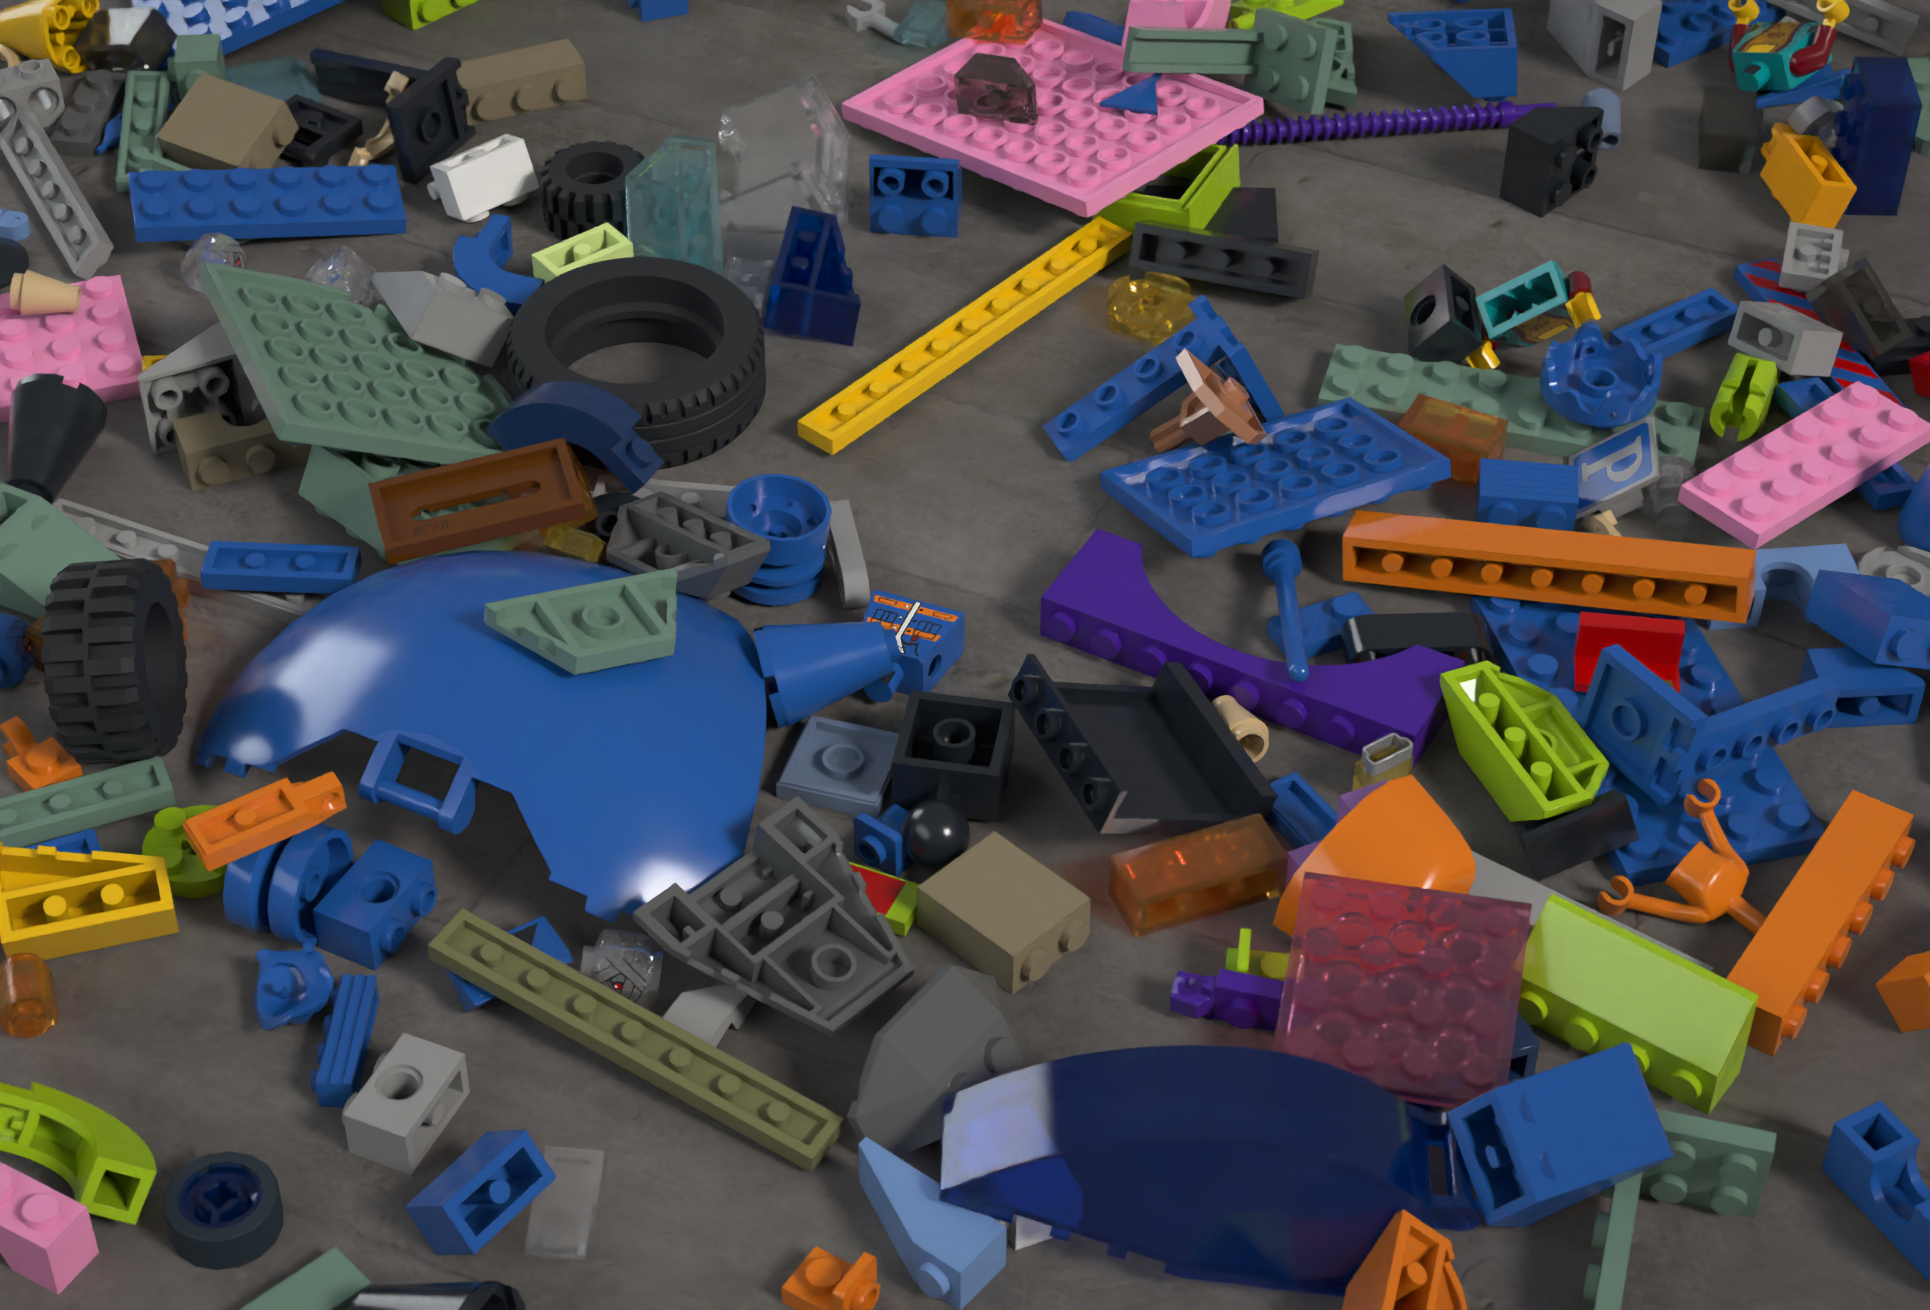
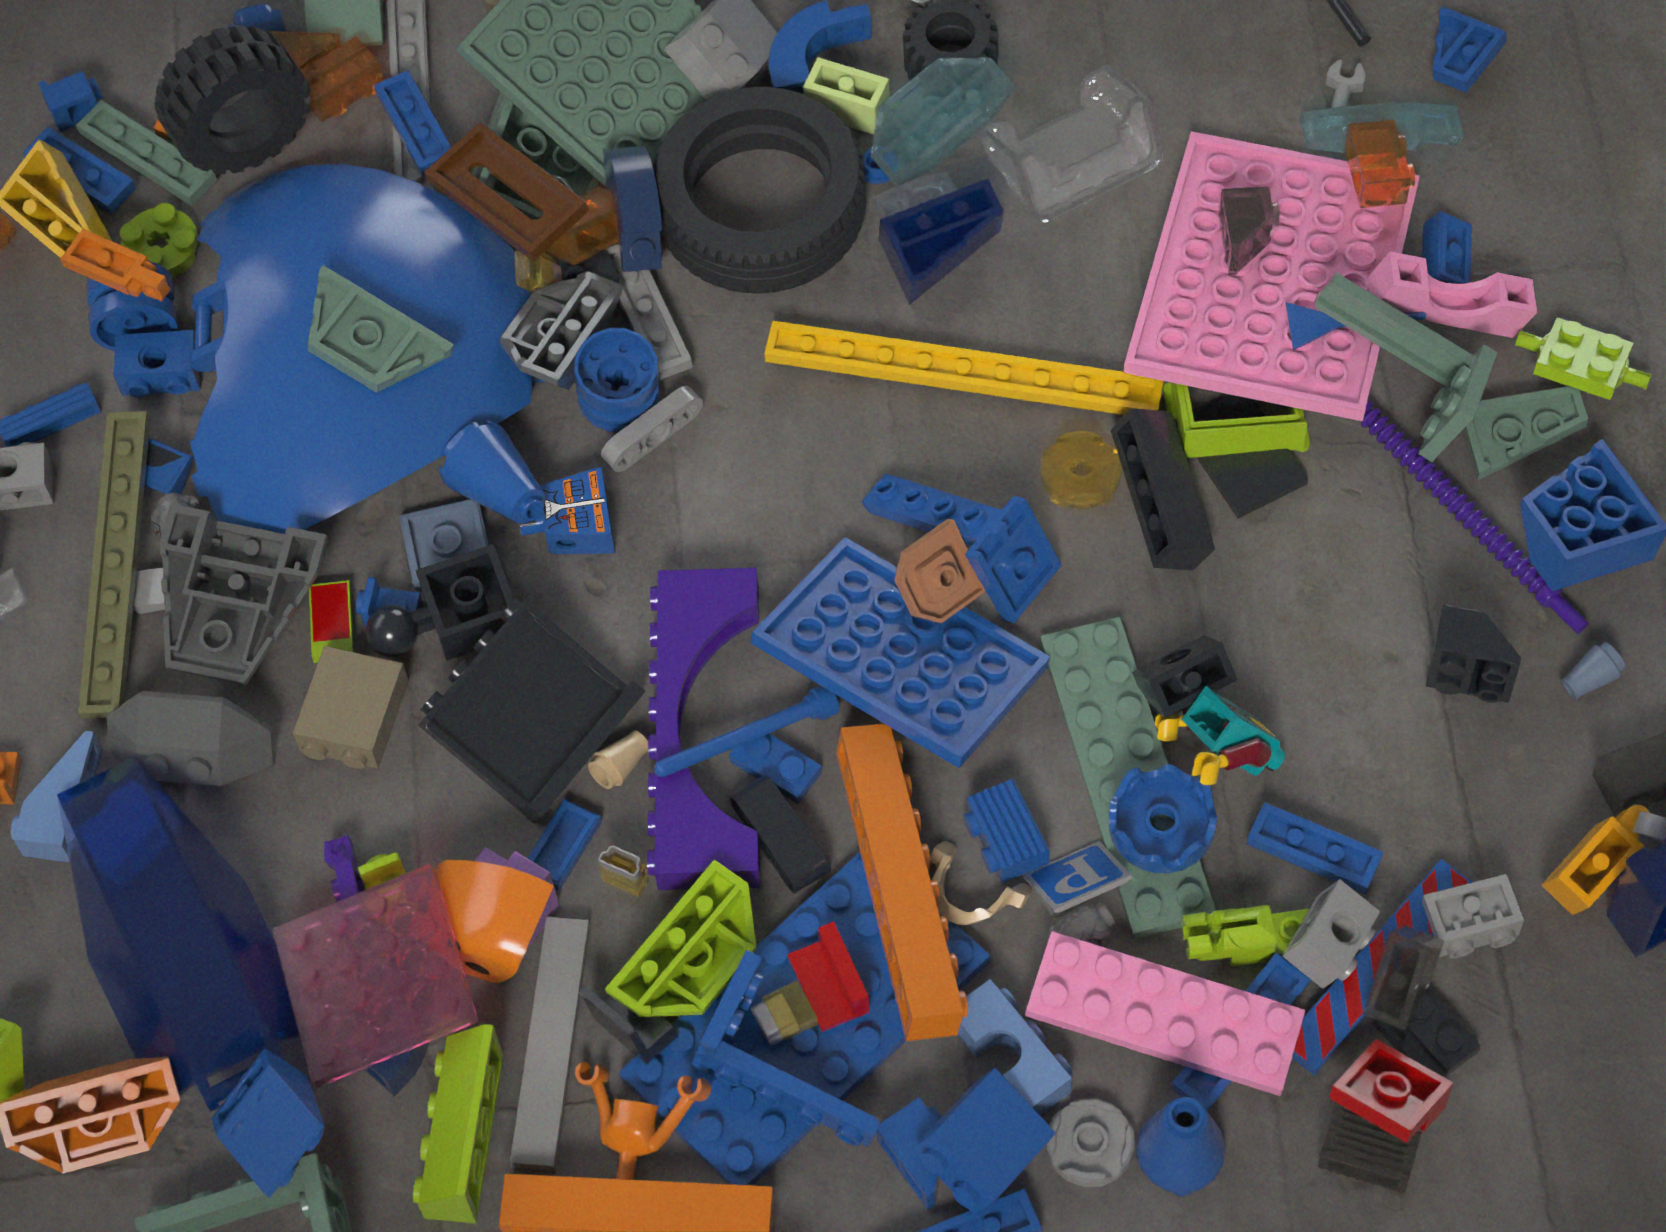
camera: 65 degrees right, 20 degrees up
(290, 986) = (66, 364): blue hat -> none
(915, 195) = (1095, 245): blue slope -> none
(1197, 875) = (453, 801): clear orange brick -> none
(1457, 434) = (1041, 750): clear orange brick -> none

